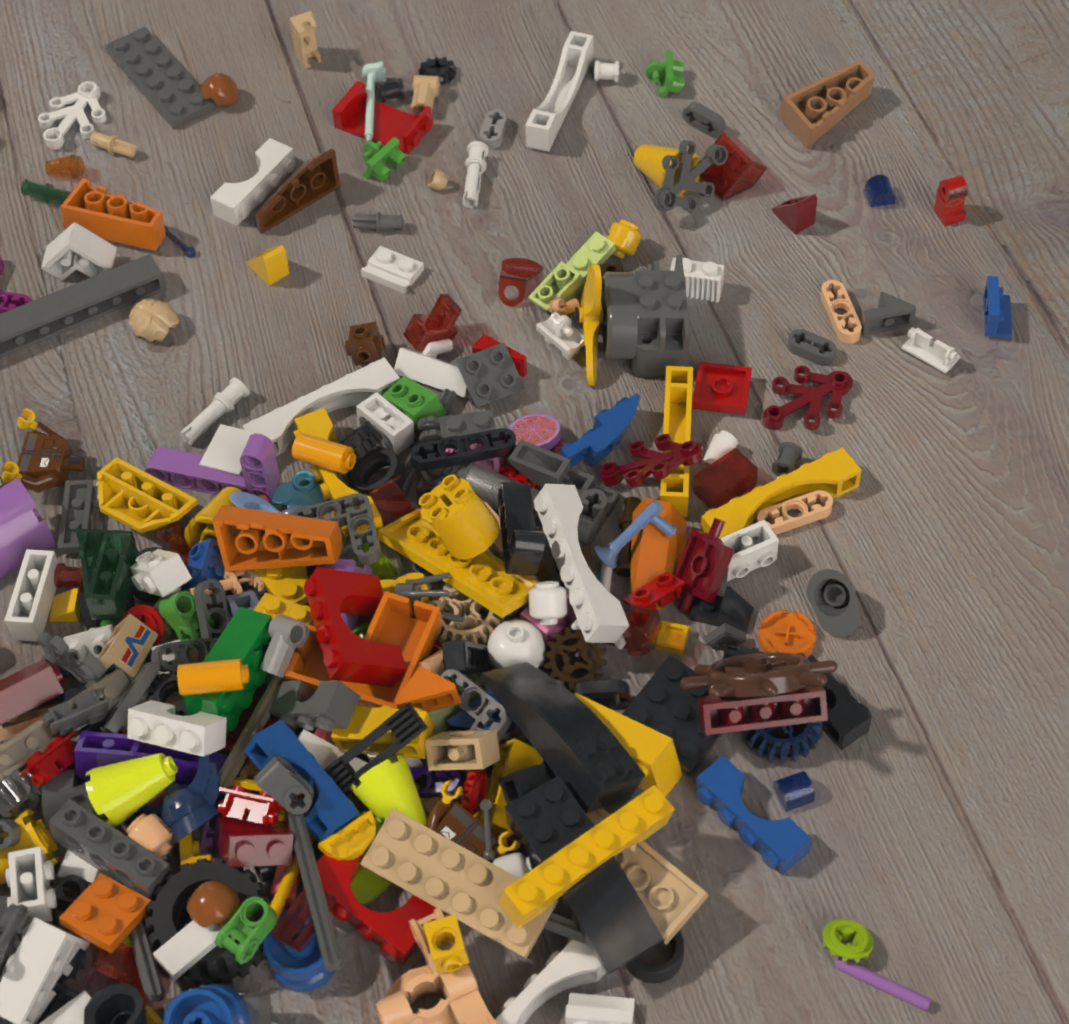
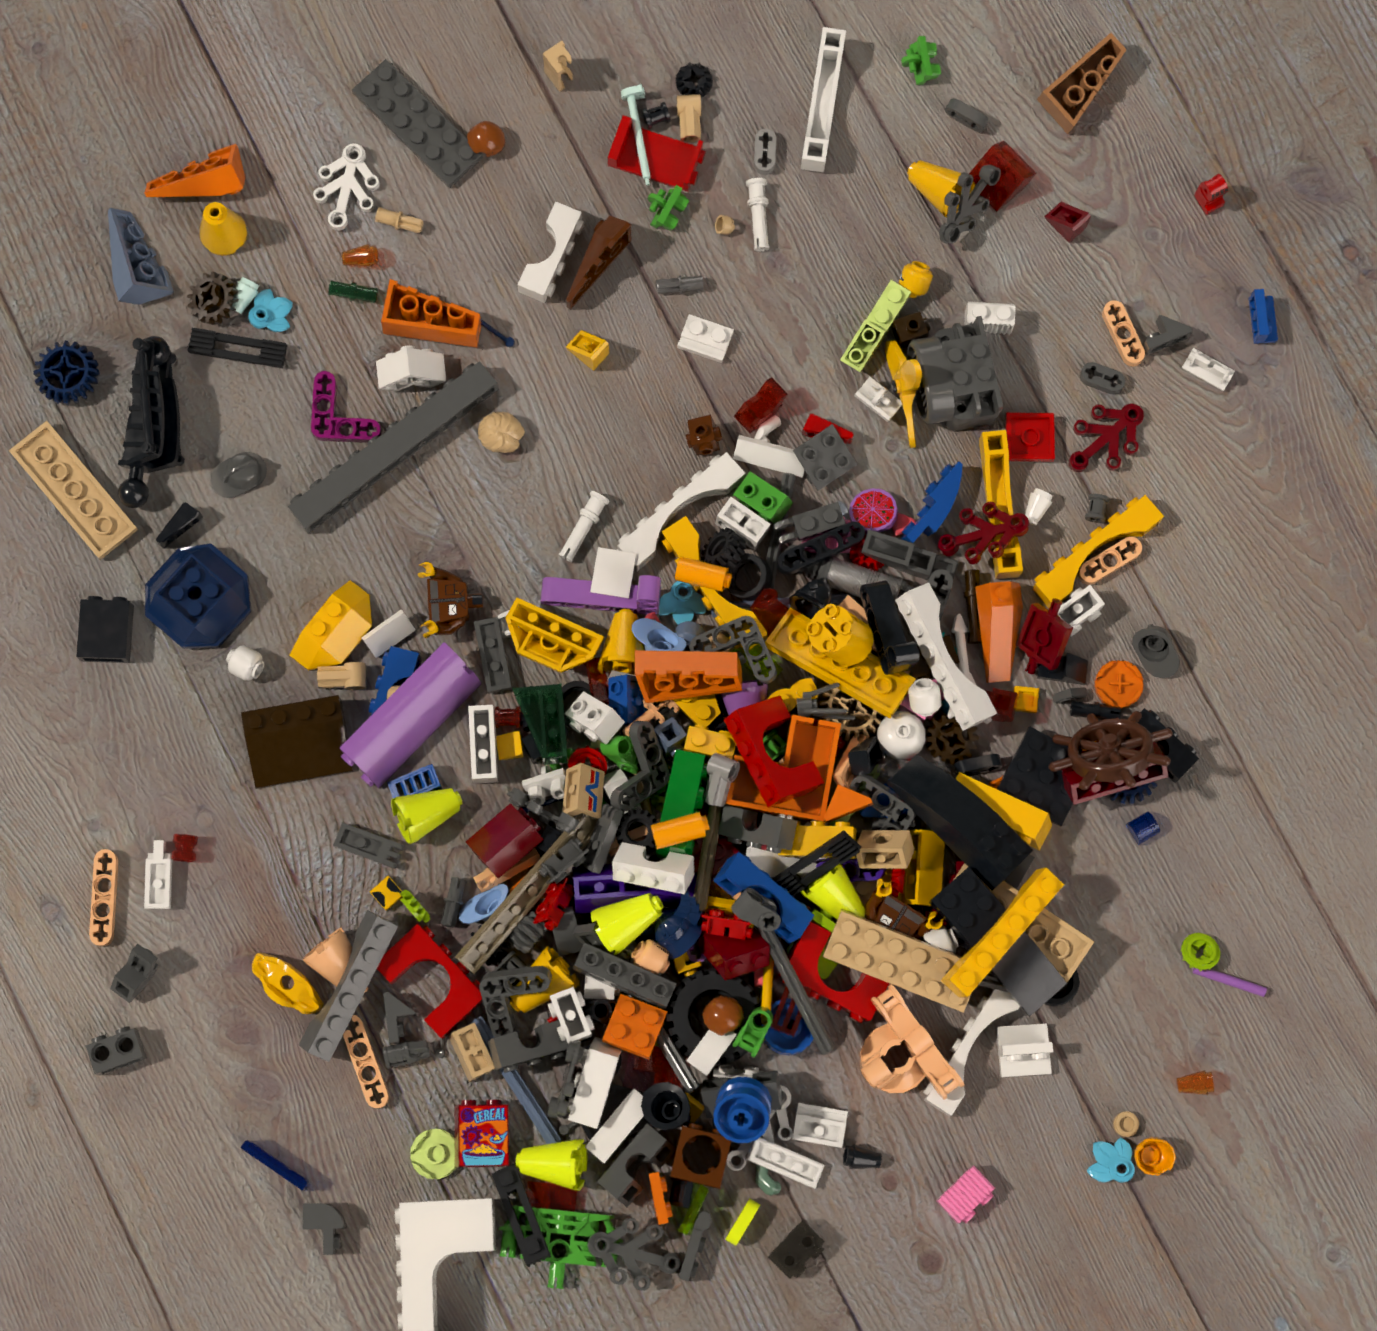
camera: 15 degrees left, 25 degrees up
(352, 839) = (813, 938): yellow tile -> none
(446, 931) = (905, 1009): yellow brick -> none
(486, 807) = (911, 892): dark grey hinge -> none
(516, 273) = (823, 330): clear red piece -> none
(523, 781) = (939, 870): black brick -> none
(567, 308) = (872, 367): light nougat arm -> none
(606, 71) = (862, 62): white bush -> none
(649, 514) = (962, 632): medium blue piece -> none
(662, 589) = (1007, 667): red hinge -> none
(725, 479) = (1047, 538): clear red brick -> none
(778, 841) = (1089, 838): blue arch -> none
(879, 191) = (1143, 184): clear blue brick -> none

